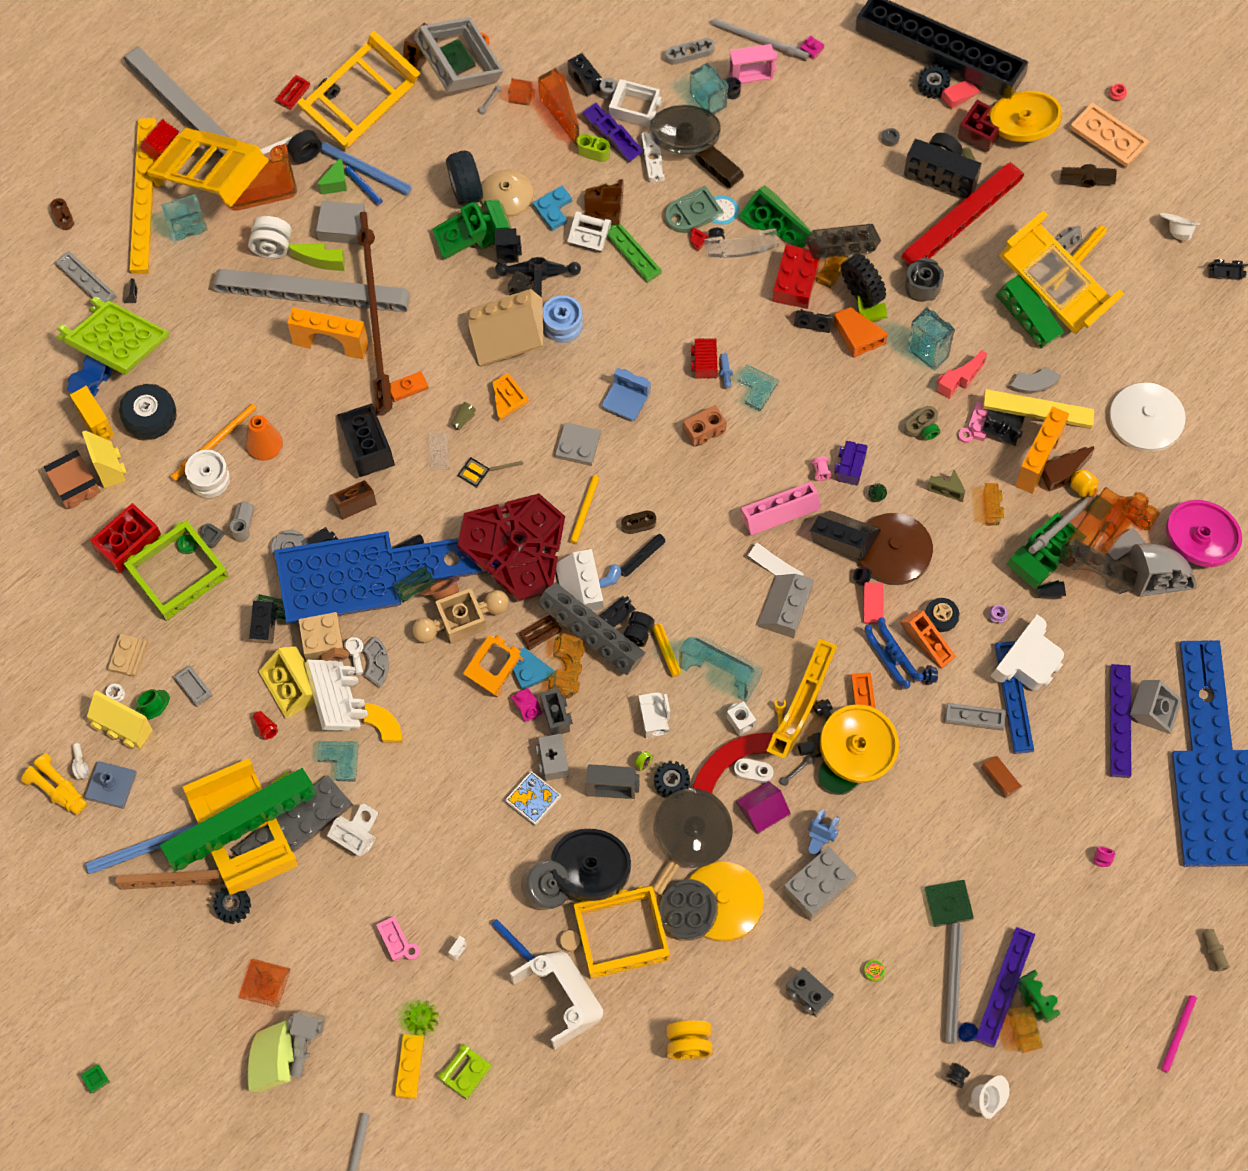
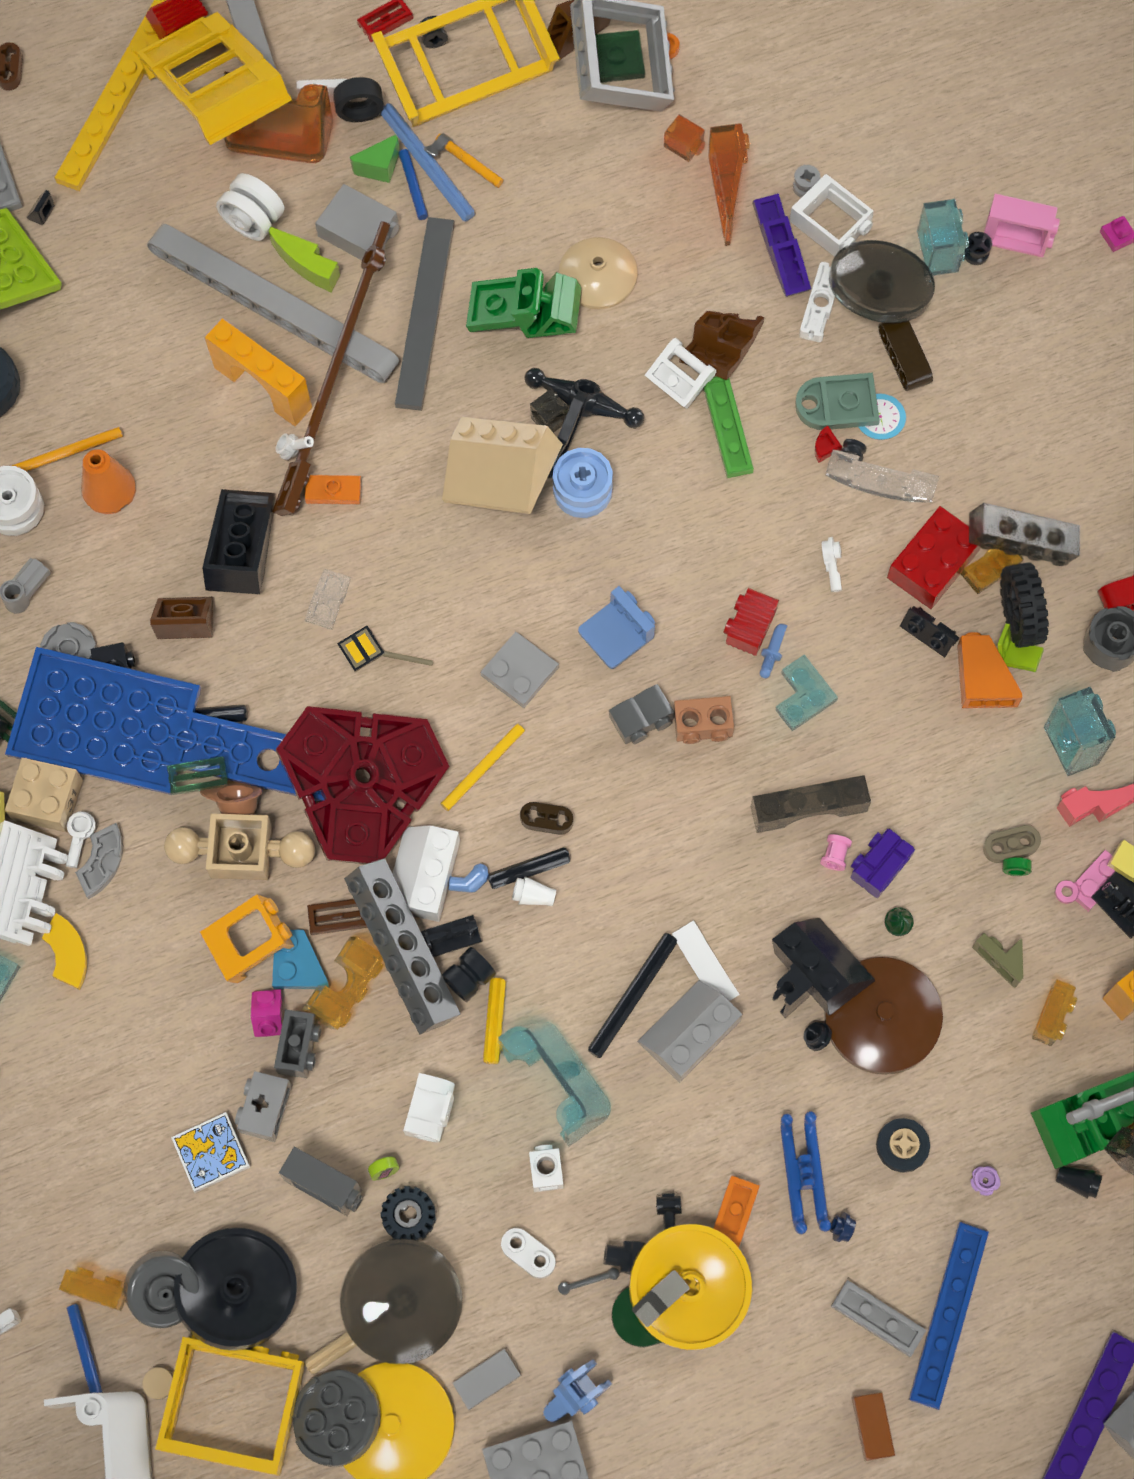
camera: 25 degrees right, 5 degrees up
(184, 217) = (154, 134): clear light blue brick -> none
(335, 654) = (48, 828): medium nougat tile -> none
(367, 370) = (290, 445): none -> white plate
(371, 152) = (446, 143): none -> light orange piece
(411, 259) = (424, 314): none -> dark grey tile
(463, 415) = (384, 562): olive cone -> none
(464, 177) = (545, 229): black wheel -> none
(482, 110) = (623, 143): light grey hinge -> none
(503, 905) = (83, 1285): none -> clear yellow piece
(507, 245) = (557, 348): black brick -> none
(508, 396) = (457, 561): light orange wing -> none
(549, 207) = (647, 312): dark azure plate -> none
(584, 74) = (782, 147): black brick -> none
(593, 147) = (746, 255): lime beam -> none
(652, 567) = (532, 893): none -> white cone
(666, 438) = (642, 714): none -> dark grey brick
(690, 45) = (962, 181): light grey beam -> none
(729, 755) = (507, 1214): red tile -> none
(733, 299) = (832, 551): none -> white plate
(741, 602) = (632, 995): none -> black axle
(764, 806) = (515, 1313): magenta slope -> none
(765, 851) = (486, 1379): none -> light grey tile
(769, 212) = (943, 449): green wedge -> none
(778, 455) = (835, 798): none -> clear smoke arch
(780, 710) = (605, 1186): yellow hand -> none
(781, 508) = (749, 887): bright pink brick -> none
(791, 50) = (1086, 226): light grey bar -> none
(805, 698) = (638, 1191): yellow arch -> none
(836, 553) = (795, 988): none -> black hinge
(846, 756) = (660, 1298): none -> clear smoke sticker
(873, 602) = (814, 1082): coral slope -> none
(927, 637) = (866, 1171): orange slope -> none
(1031, 658) = (999, 1270): white brick -> none

